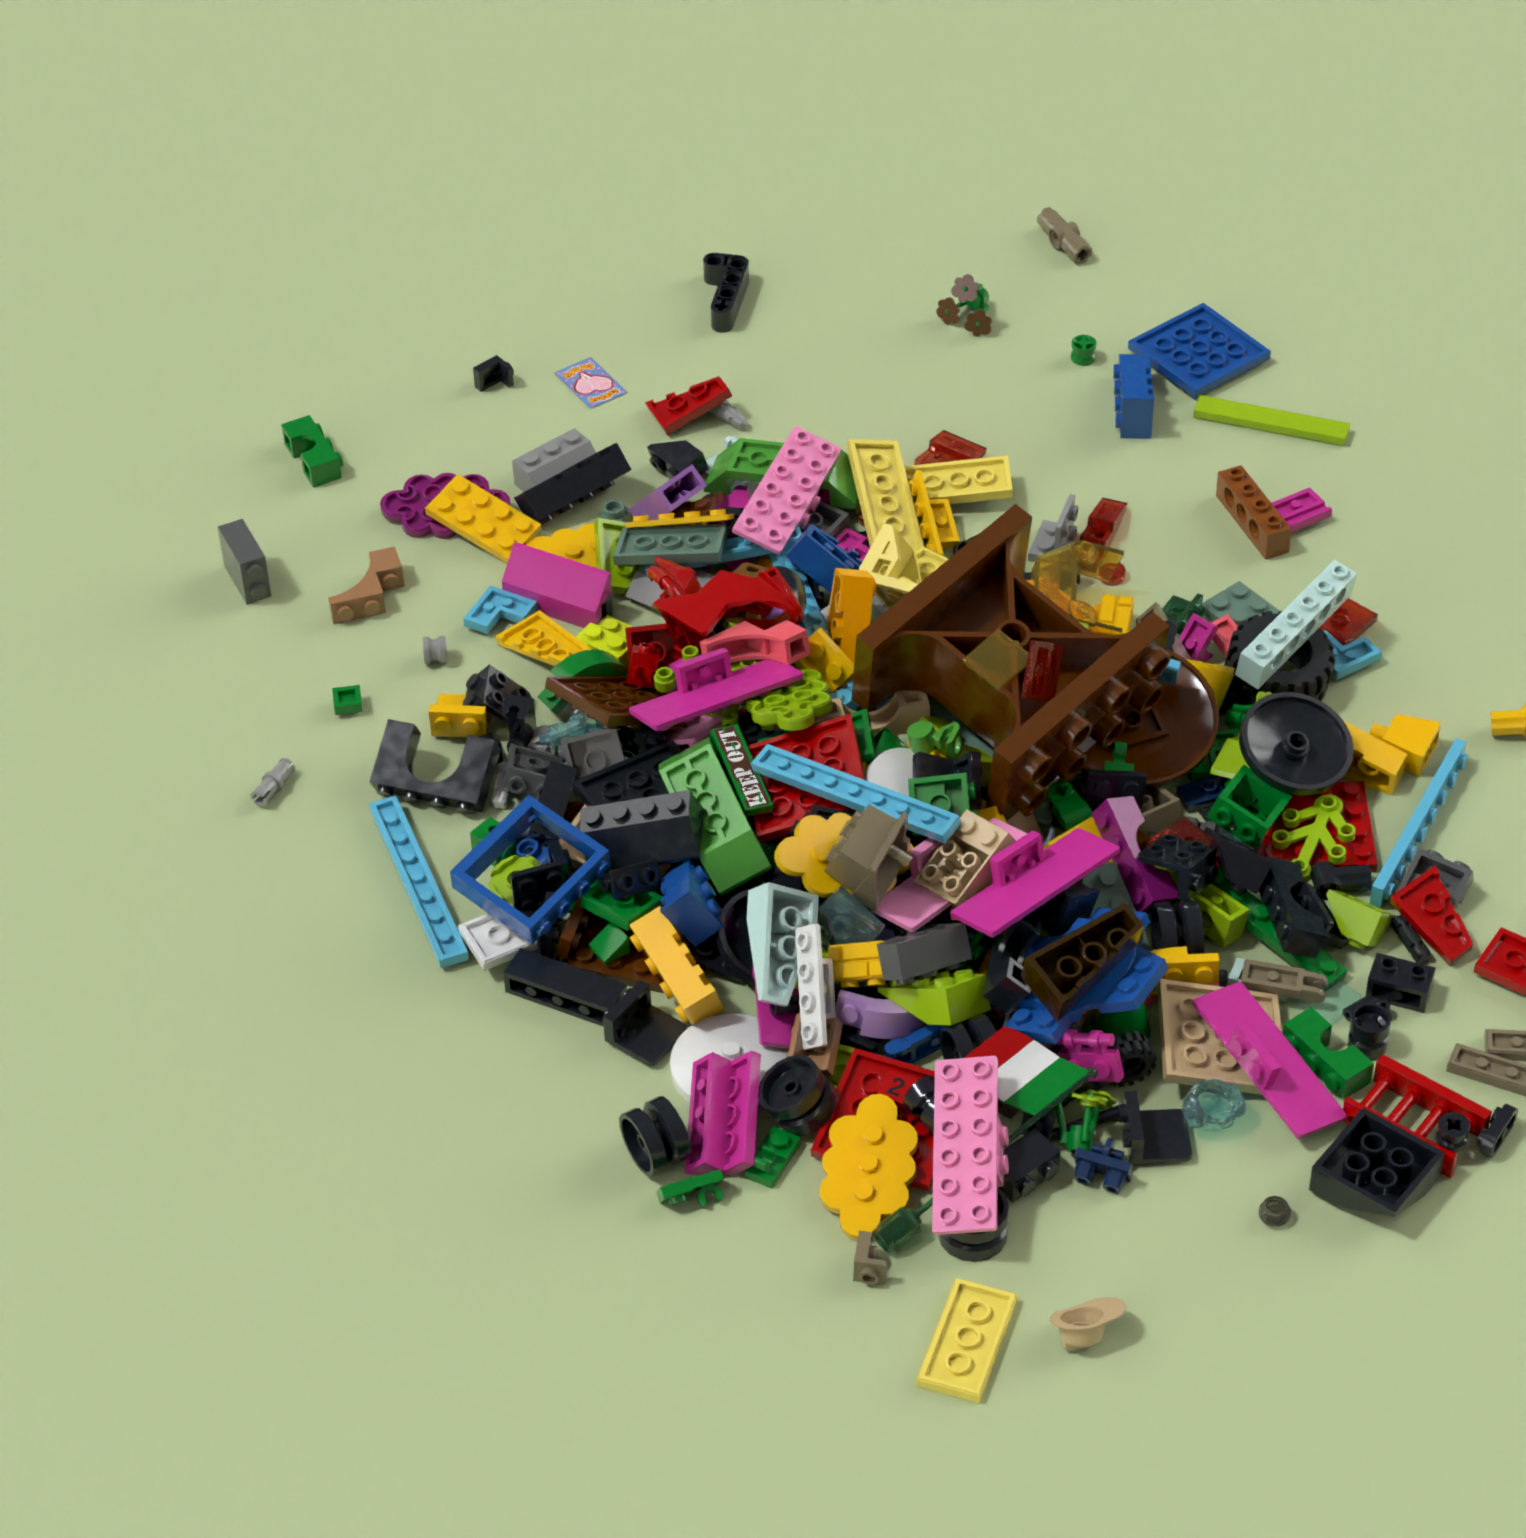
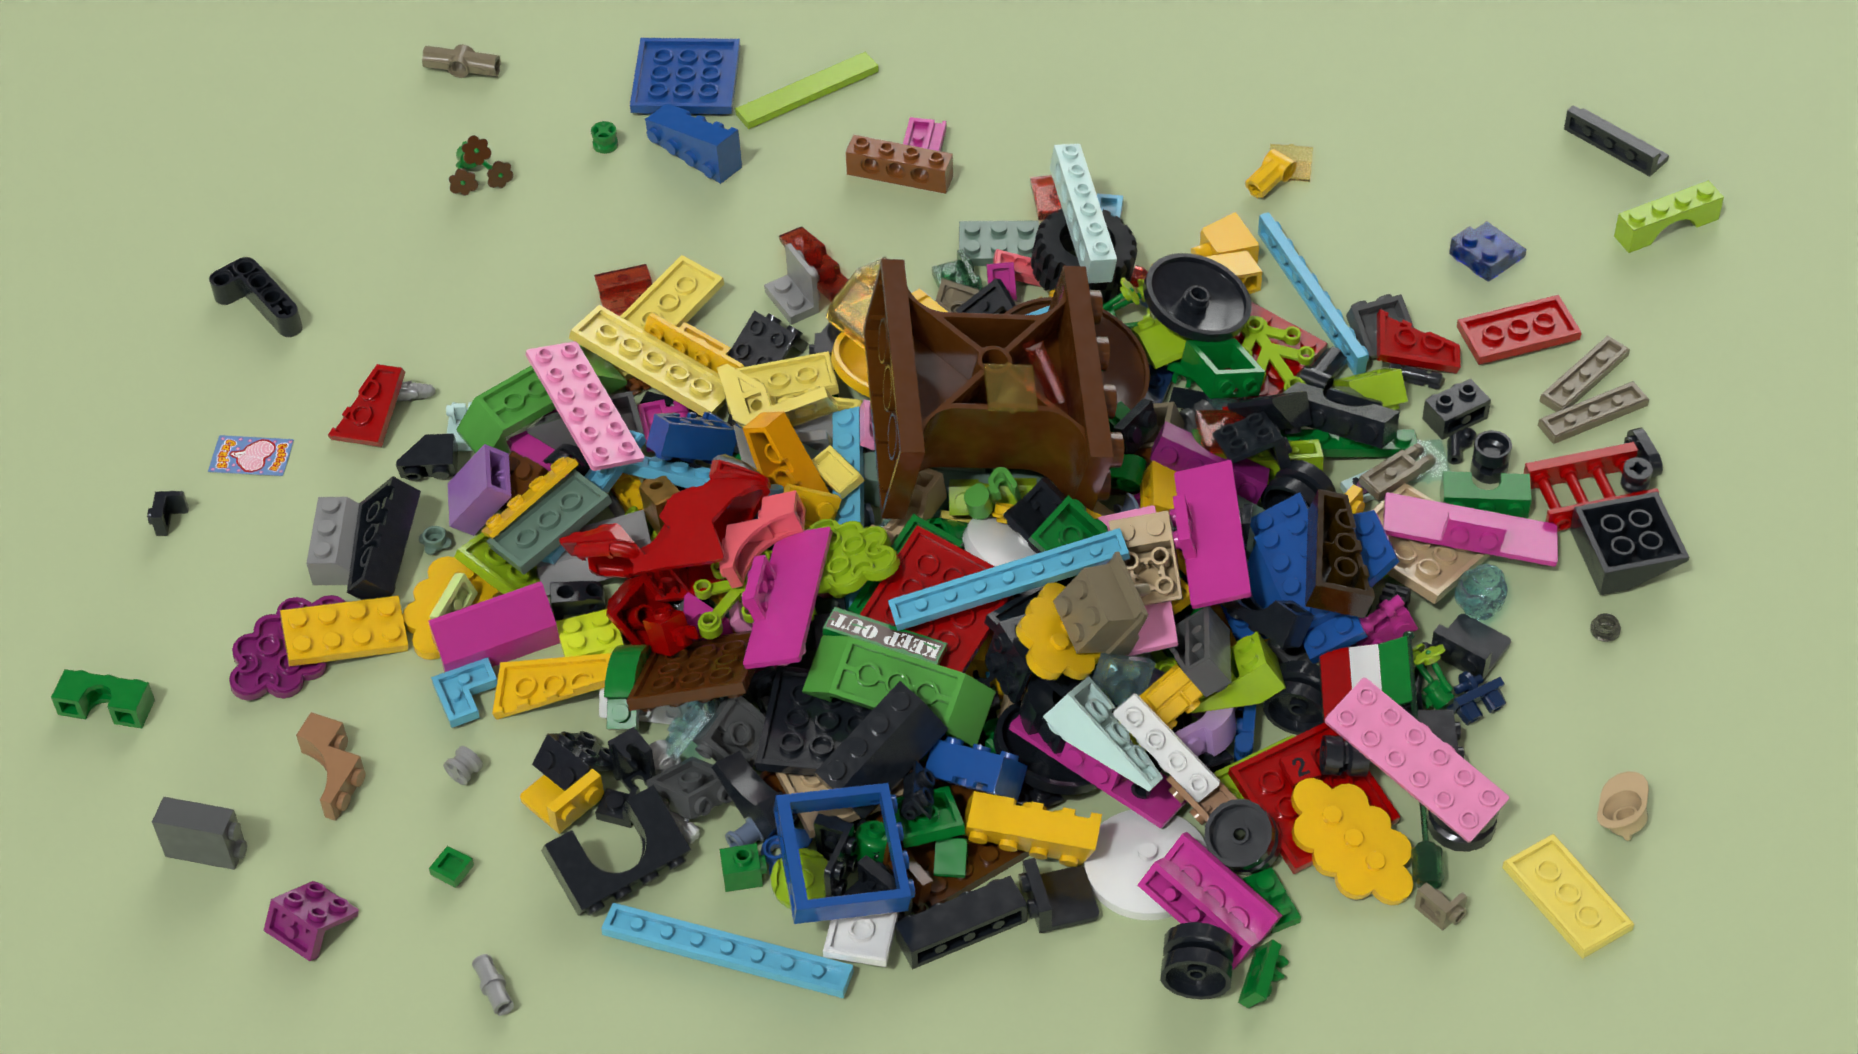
camera: 50 degrees left, 5 degrees up
(241, 655) = (304, 916): none -> magenta bracket
(567, 546) = (457, 595): none -> yellowish green plate
(636, 610) = (576, 598): none -> black leg

